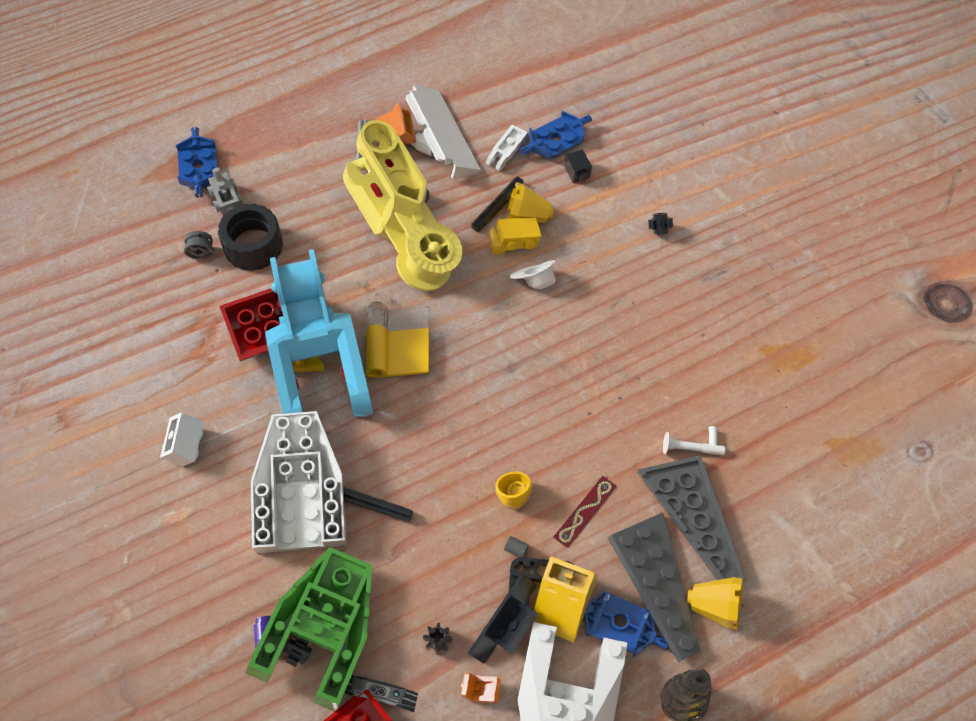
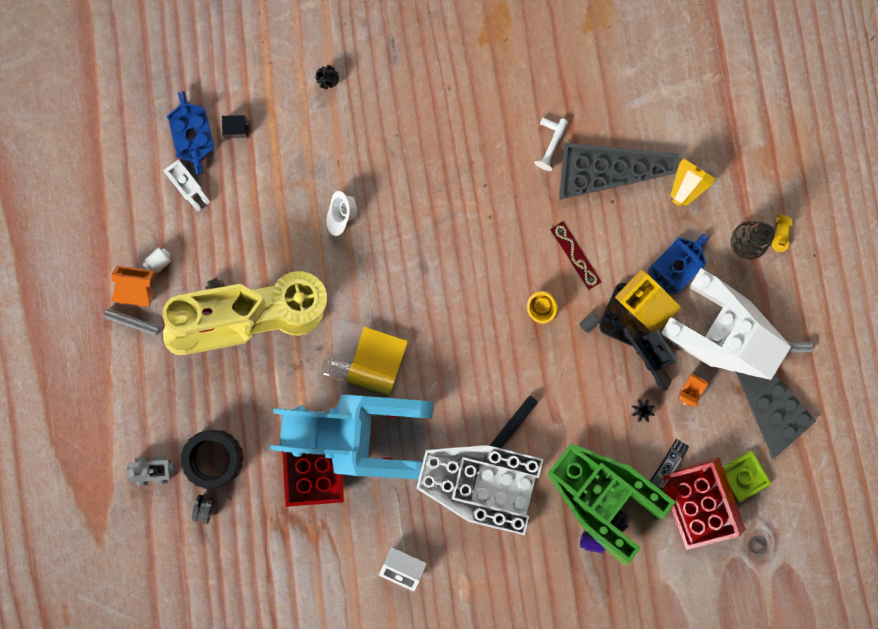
camera: 70 degrees left, 25 degrees up
(192, 152) = (85, 487): blue plate -> none
(442, 131) = (153, 240): white slope -> none
(494, 207) = (249, 217): black axle -> none
(514, 234) = (292, 215): yellow hinge -> none
(528, 204) = (266, 192): yellow cone -> none
(652, 567) = (643, 222): dark grey wing -> none

